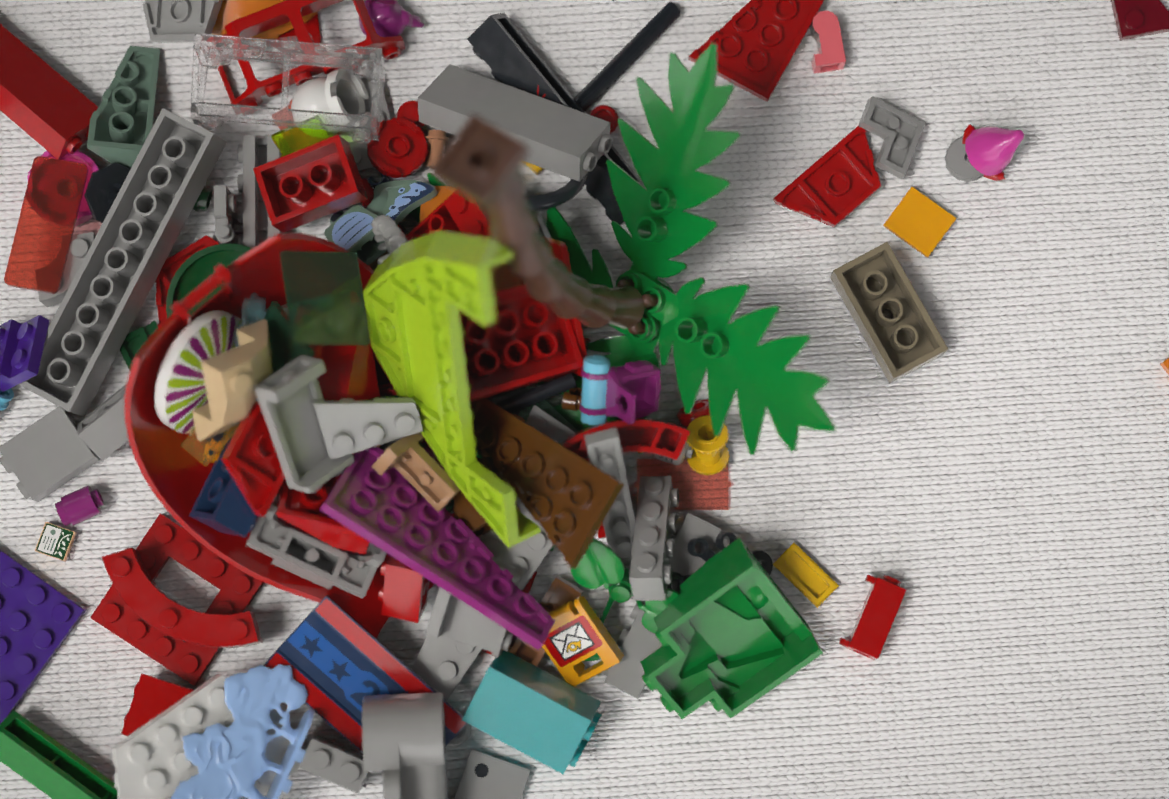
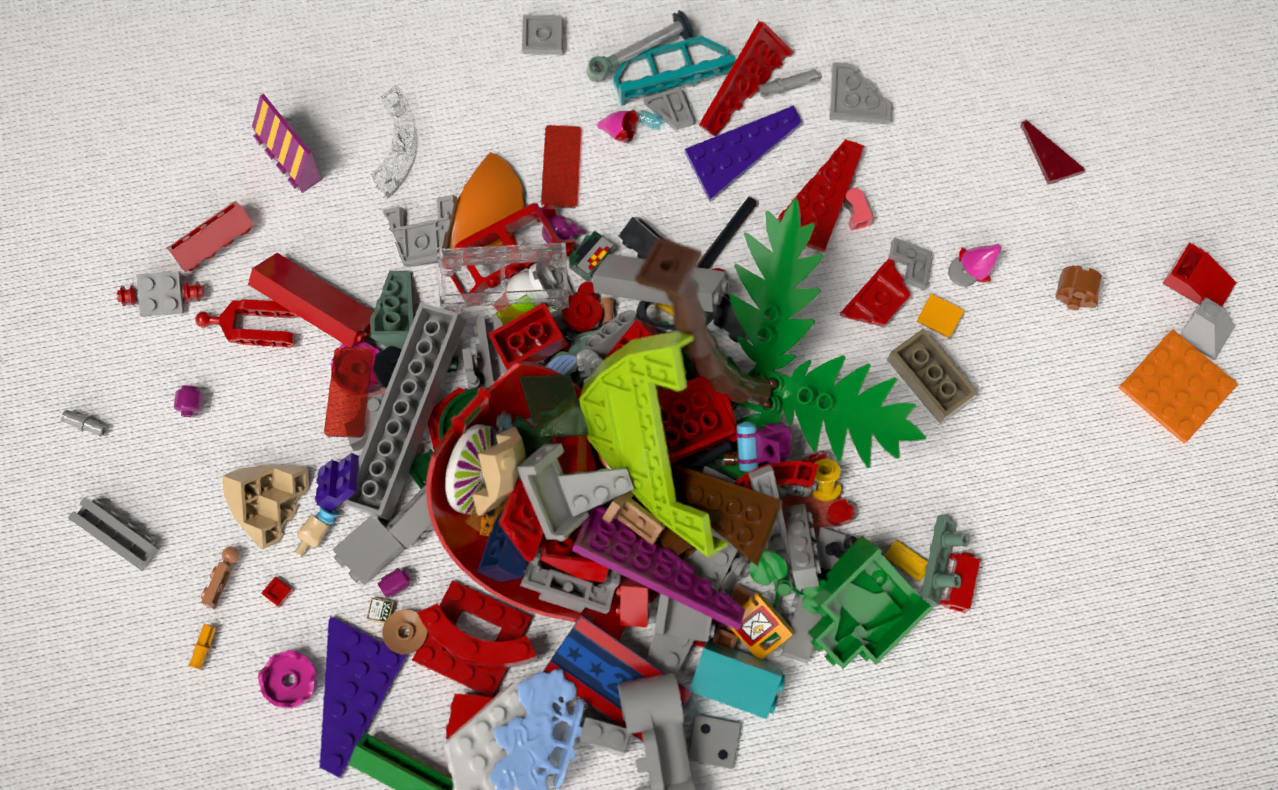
camera: 10 degrees left, 10 degrees down
(69, 576) = (396, 624): none -> medium nougat dish
(417, 202) = (607, 336): none -> light grey beam
(423, 62) = (590, 255): none -> brick
(550, 568) = (739, 569): none -> light grey plate
(720, 494) = (840, 513): none -> red plate
(847, 583) = (938, 560): none -> sand green plate
(1129, 209) = (1079, 287): none -> dark orange brick

